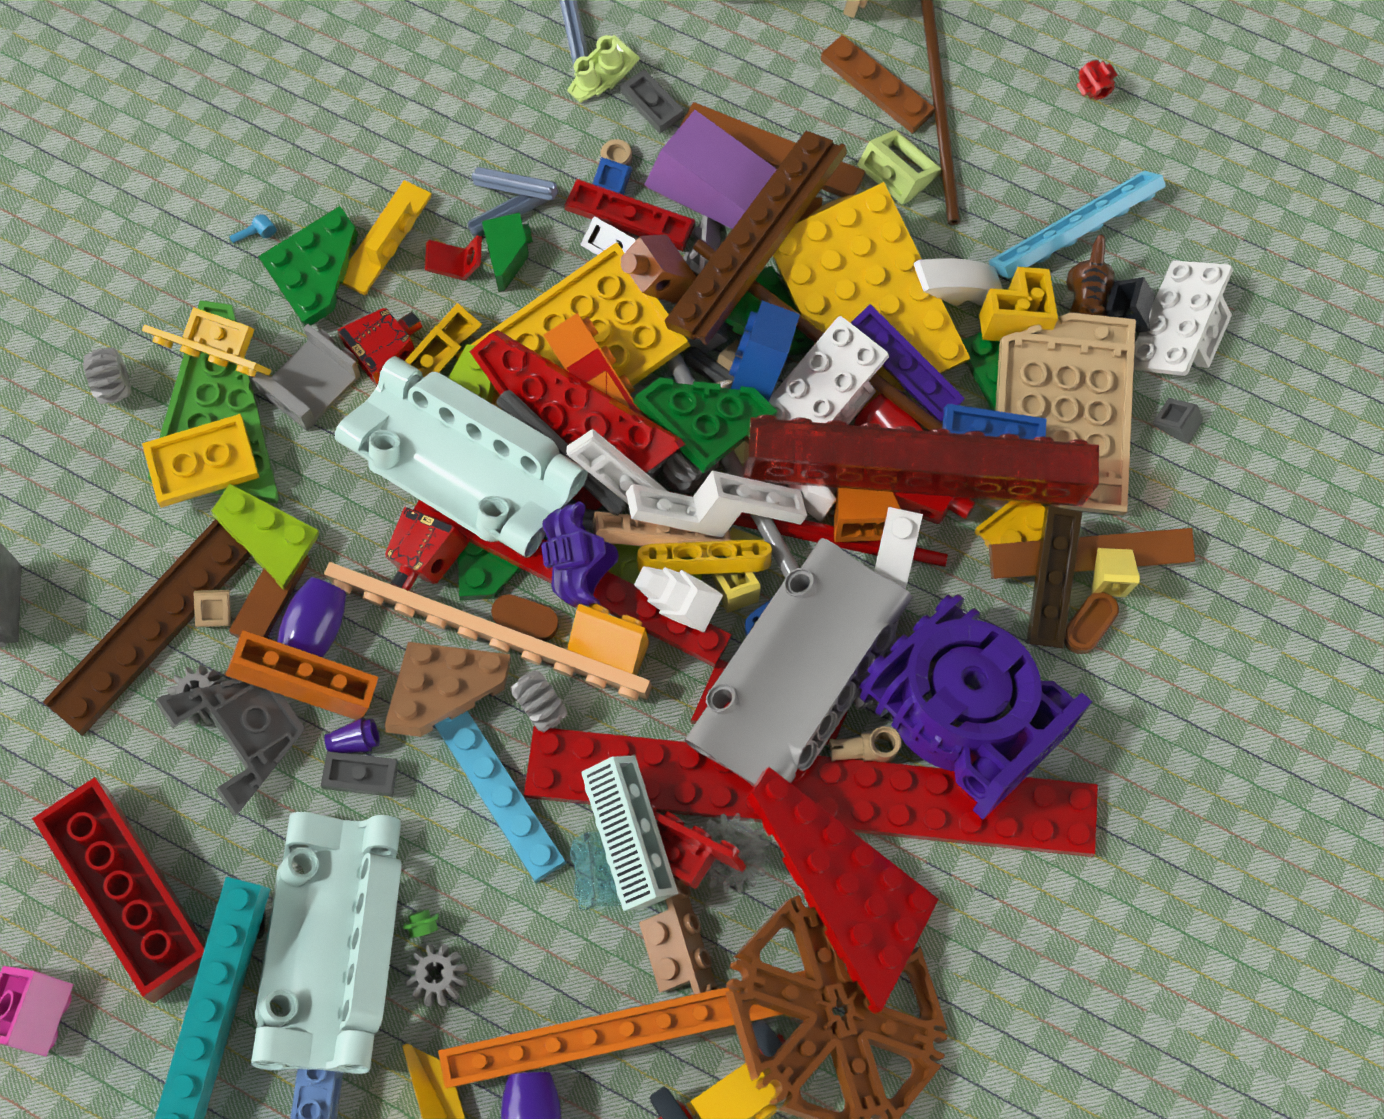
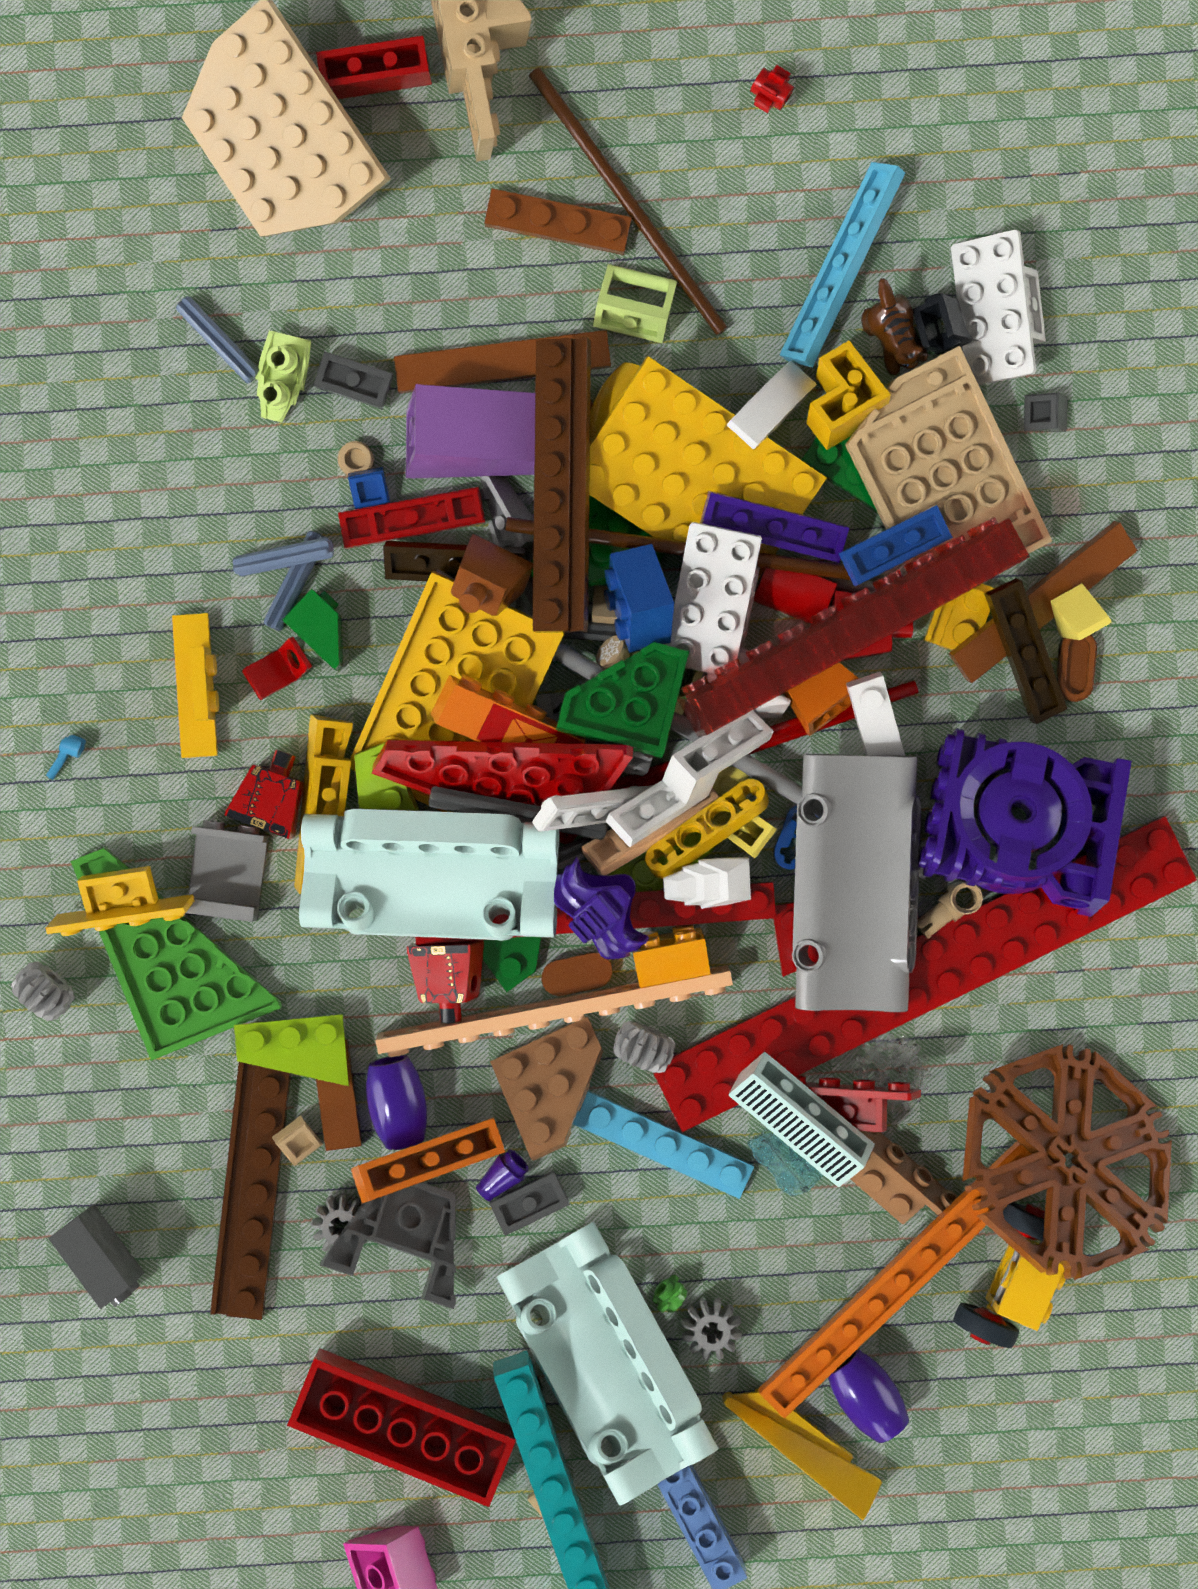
camera: 35 degrees left, 20 degrees up
(200, 460) = (191, 1019): yellow plate -> none
(313, 265) = (149, 758): green plate -> none
(861, 896) = (1016, 1046): red wing -> none

